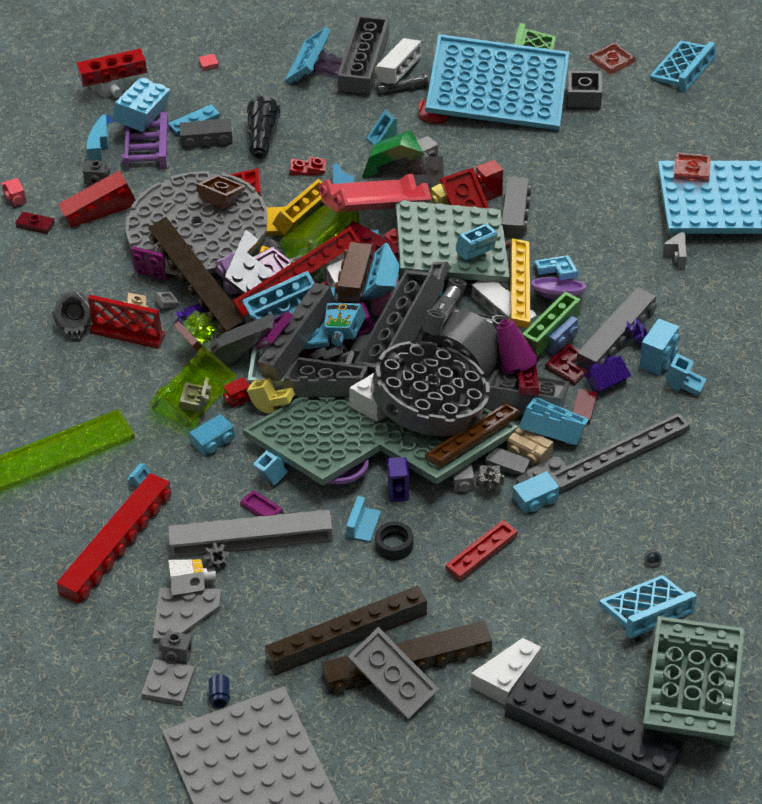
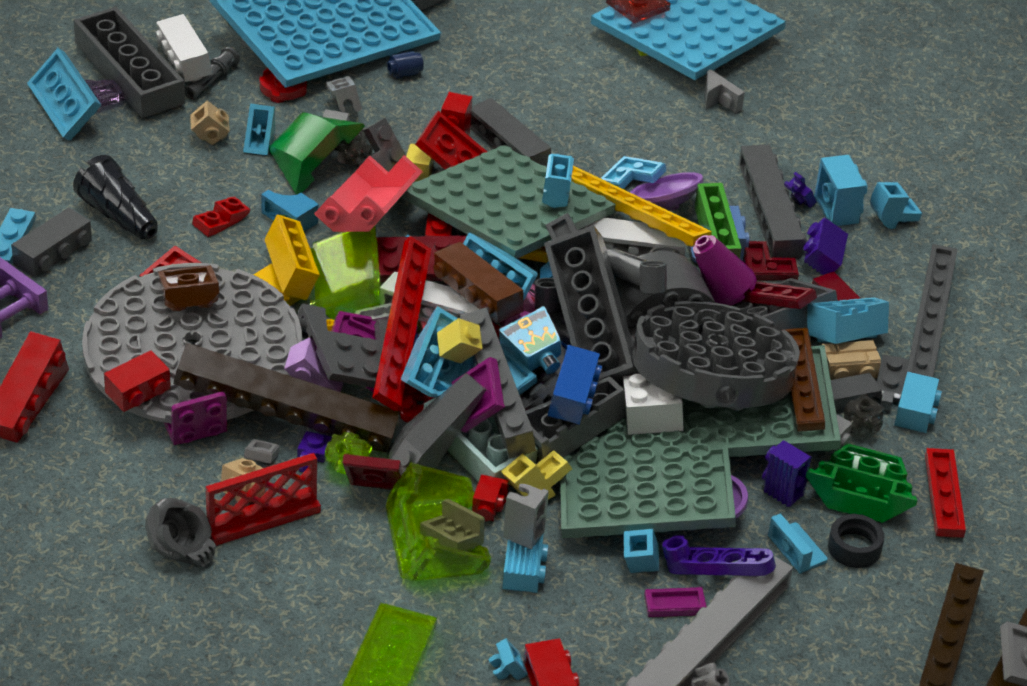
camera: 50 degrees left, 5 degrees down
(135, 224) = (137, 381): none -> red brick
(221, 408) = (525, 516): none -> light grey hinge
(293, 295) = (459, 340): none -> light yellow brick
(299, 497) = (690, 560): none -> dark purple beam
(333, 357) = (575, 385): none -> blue brick
(361, 111) = (210, 123): none -> tan brick
(440, 512) = (863, 483): none -> green wedge
(451, 131) = (343, 91): none -> light grey hinge
(514, 134) = (405, 64): none -> dark blue brick

